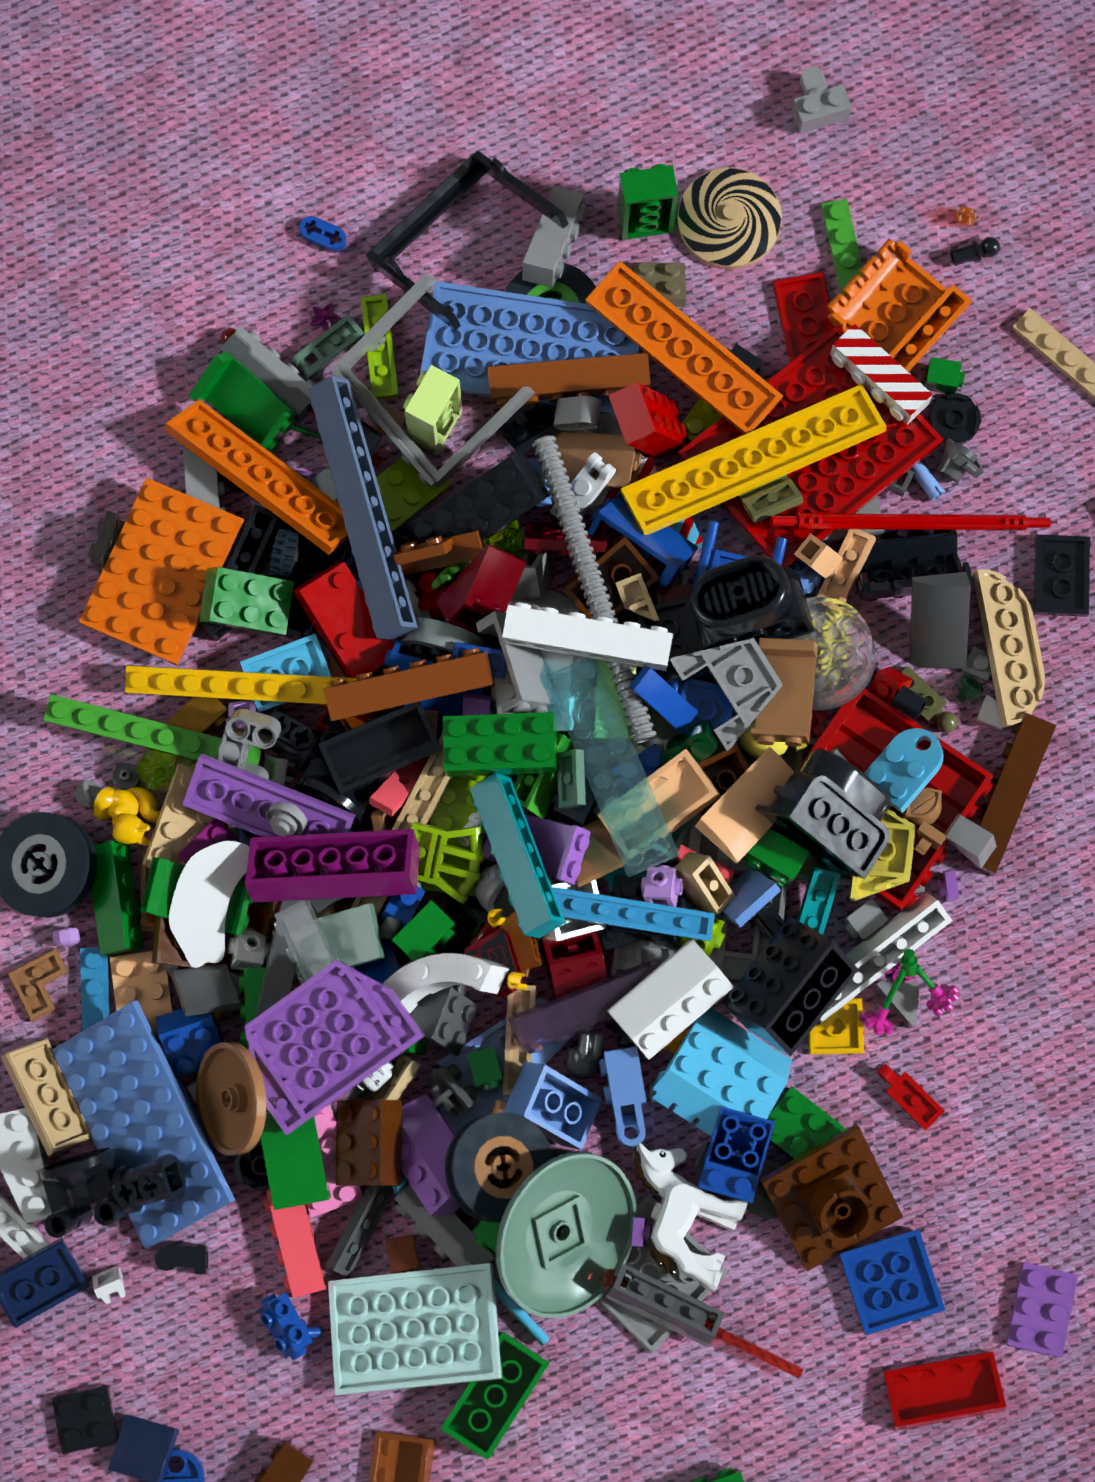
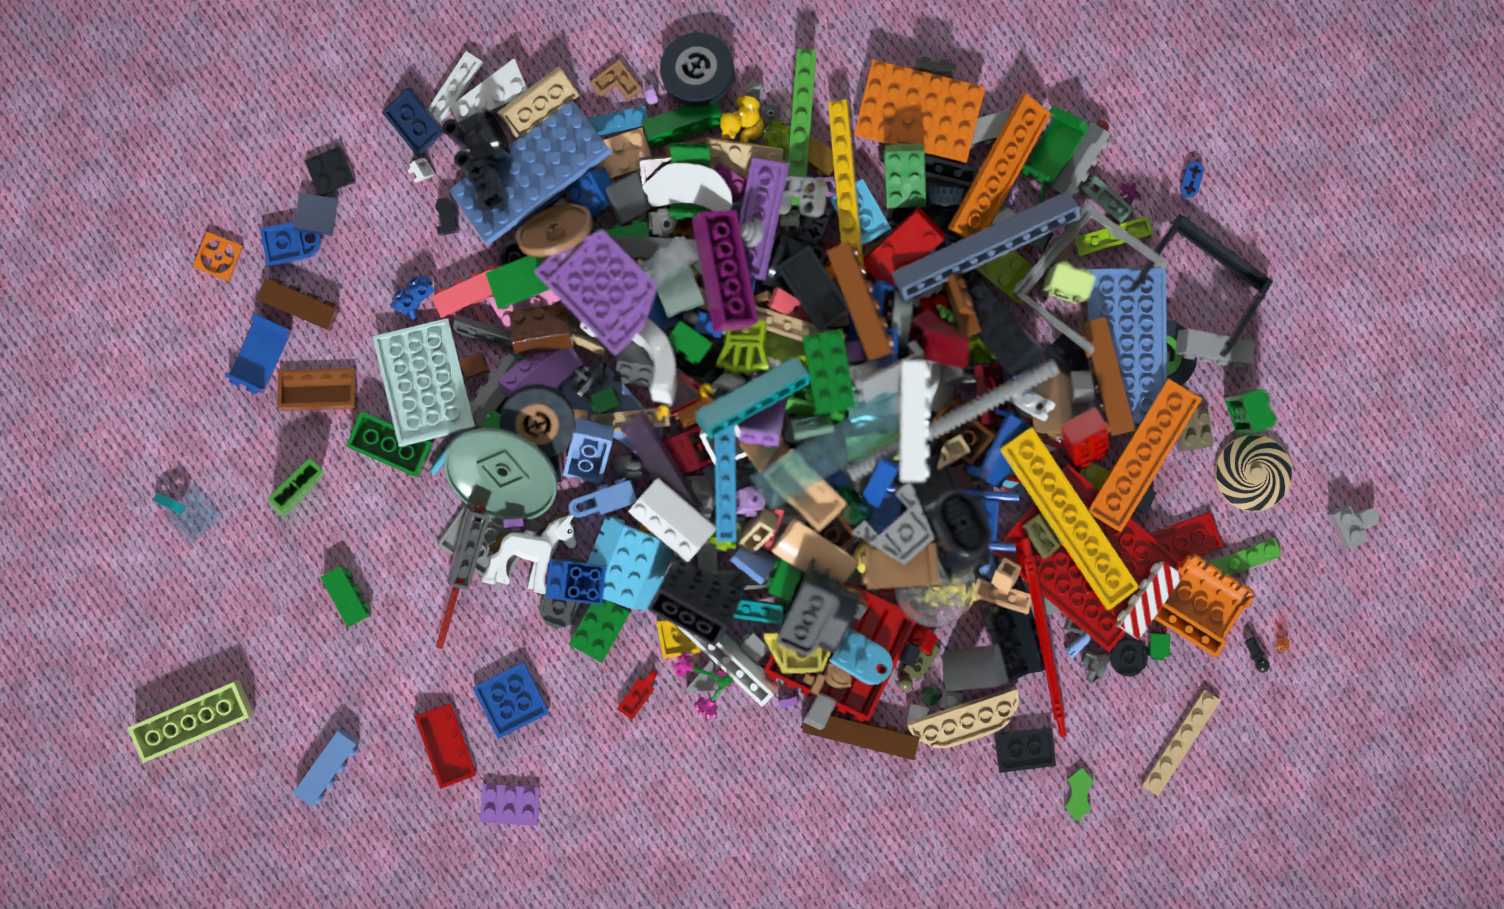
camera: 85 degrees right, 10 degrees up
(831, 1197) = (559, 651): reddish brown piece -> none

